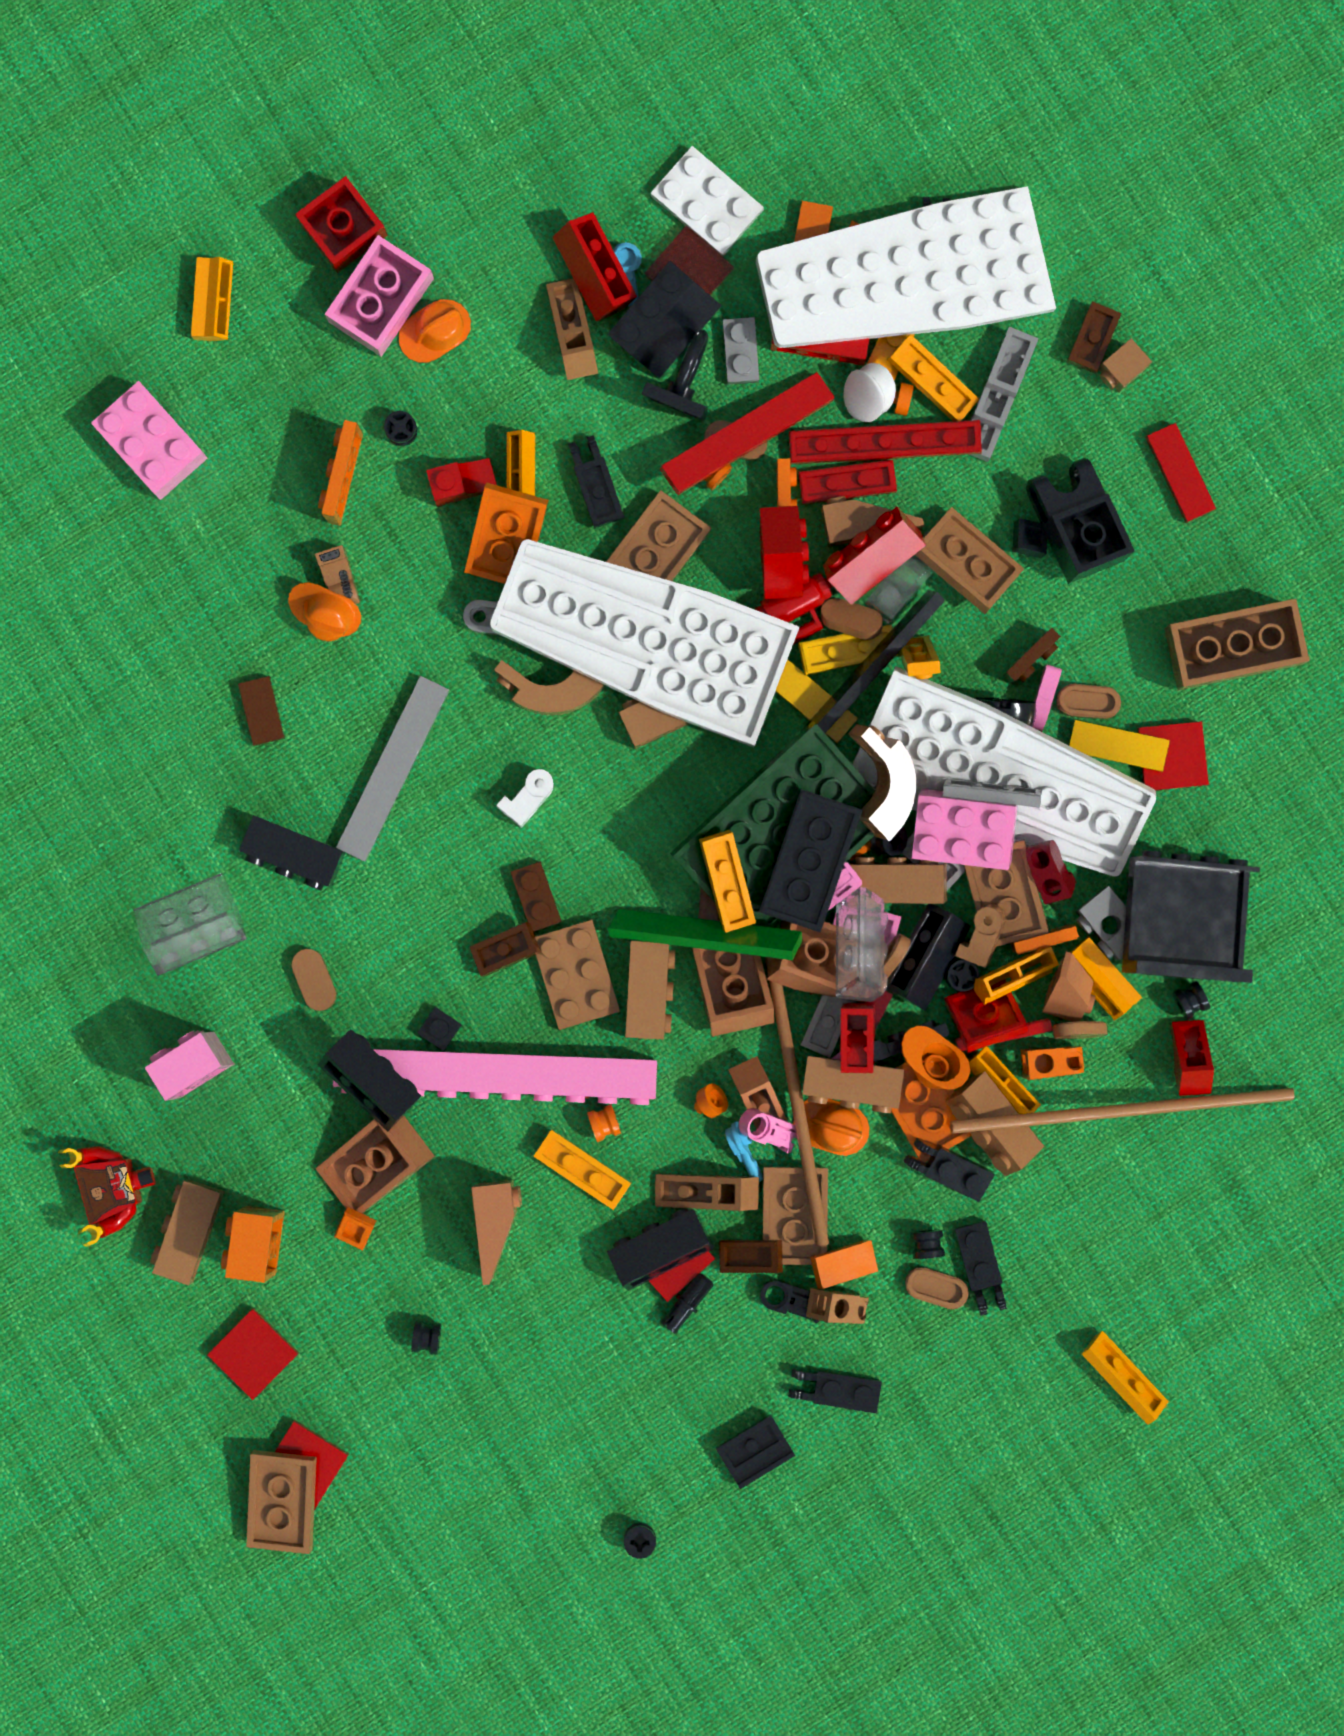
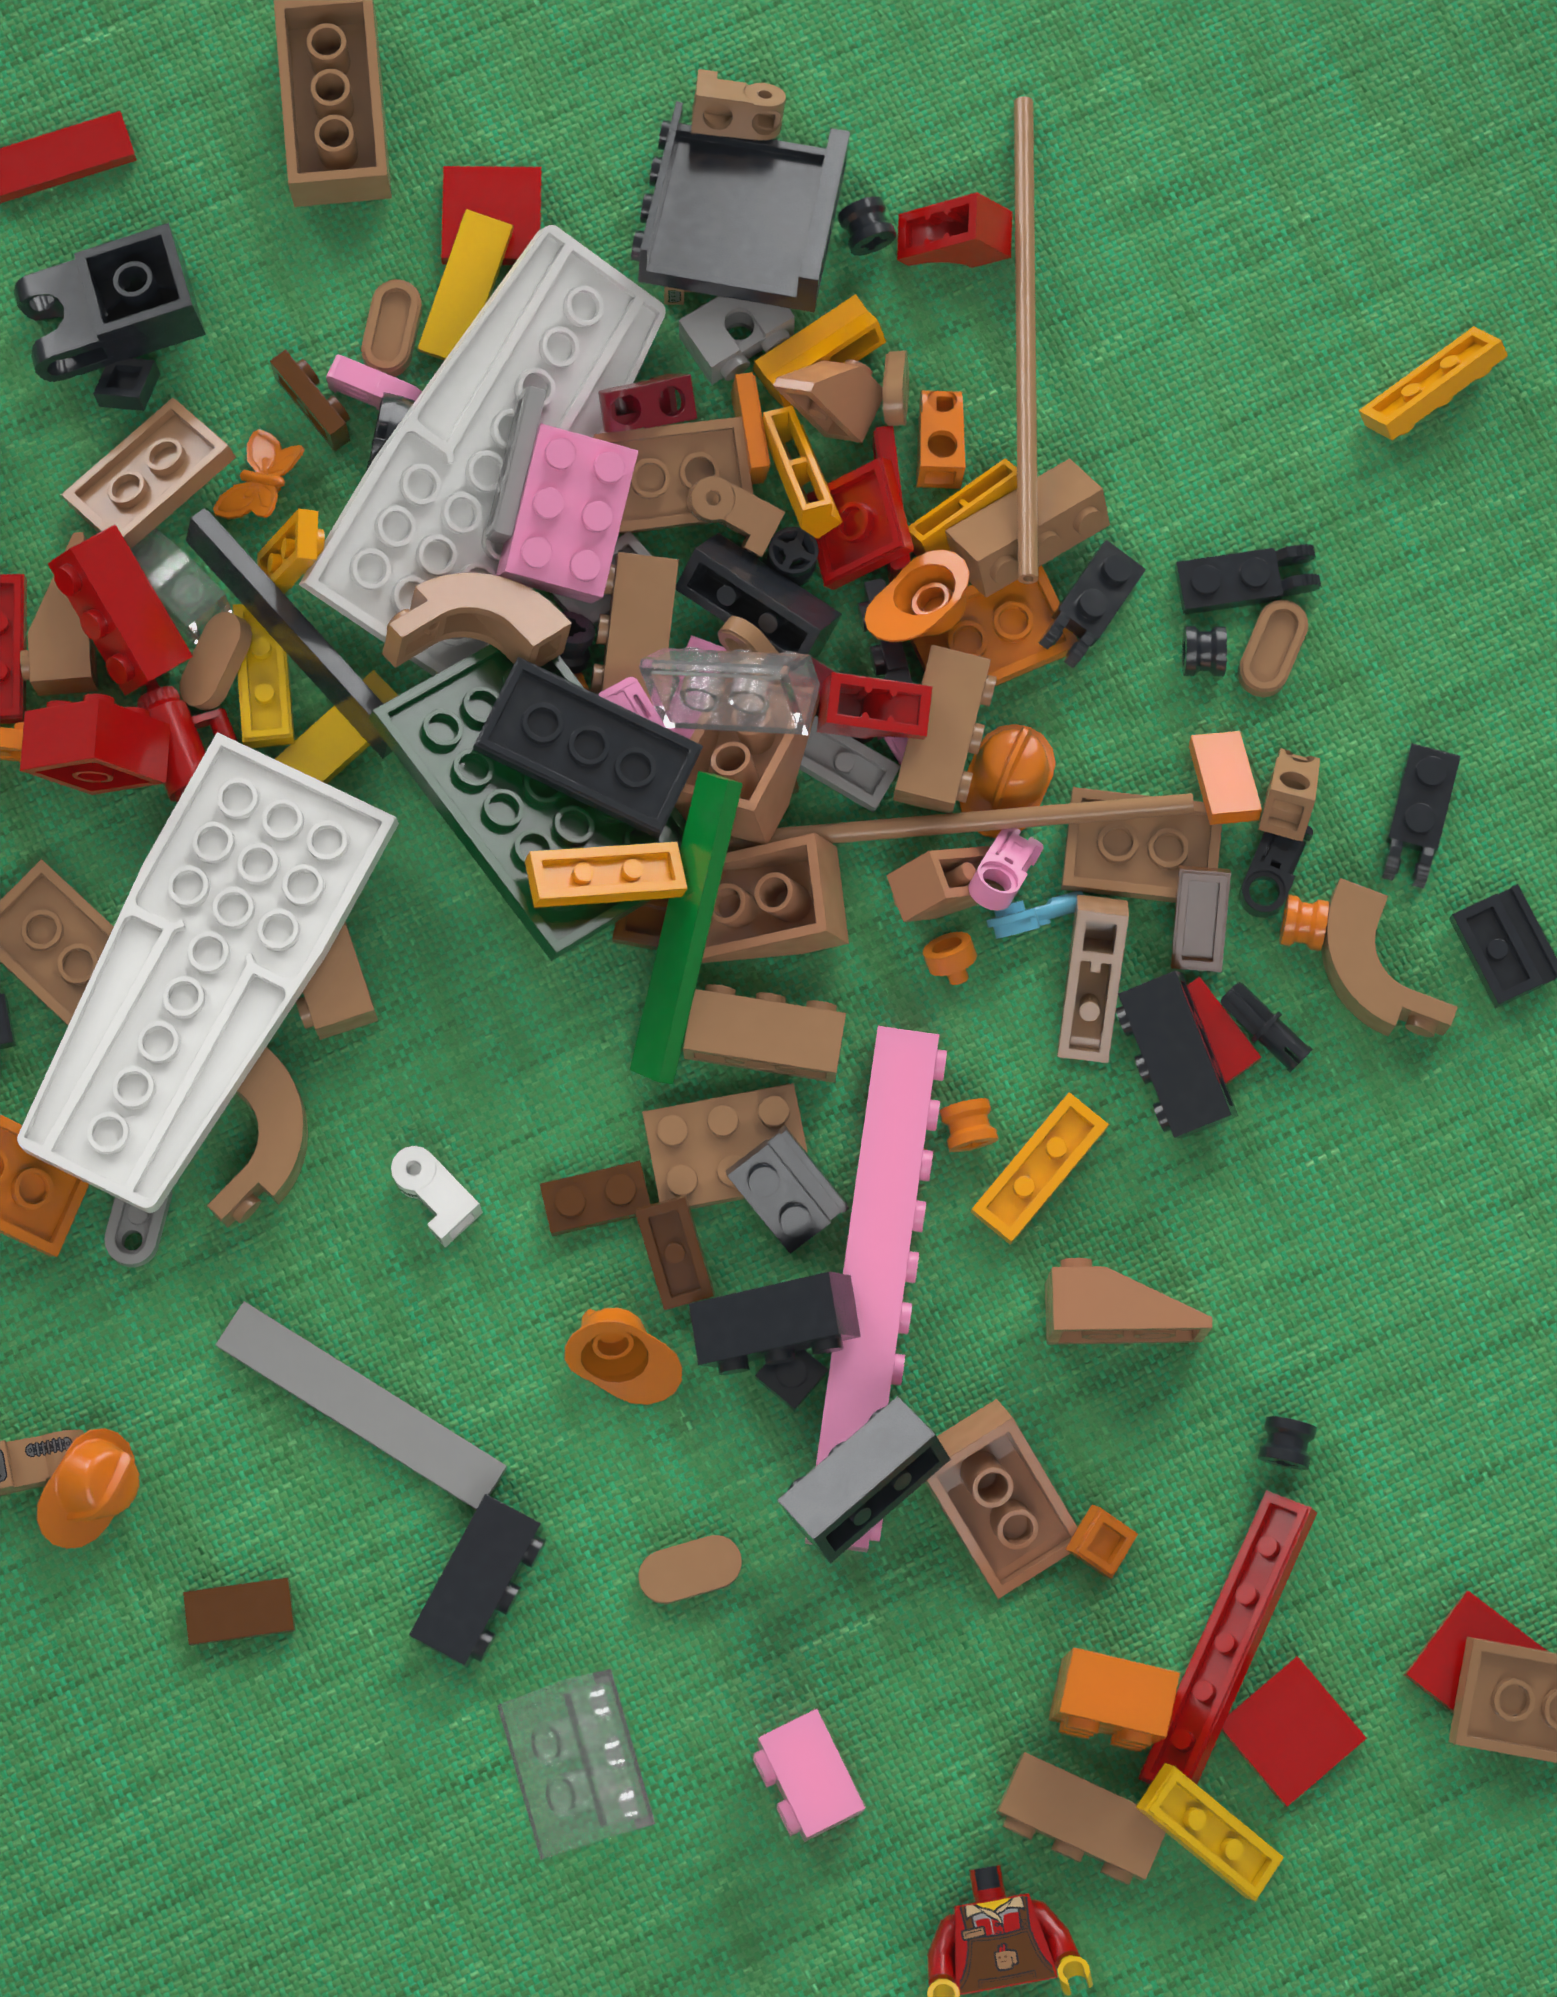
camera: 85 degrees left, 10 degrees down
(184, 1309) = (1209, 1832): none -> yellow tile
(303, 1312) = (1231, 1636): none -> red tile
(437, 923) = (622, 1357): none -> orange piece
(464, 1015) = (775, 1322): none -> black brick
(550, 1014) = (787, 1189): none -> plate
(738, 1352) = (1359, 976): none -> medium nougat arch
(756, 1322) = (1304, 922): none -> orange wheel
(969, 632) = (261, 487): none -> orange piece
(1261, 906) = (736, 108): none -> medium nougat leg

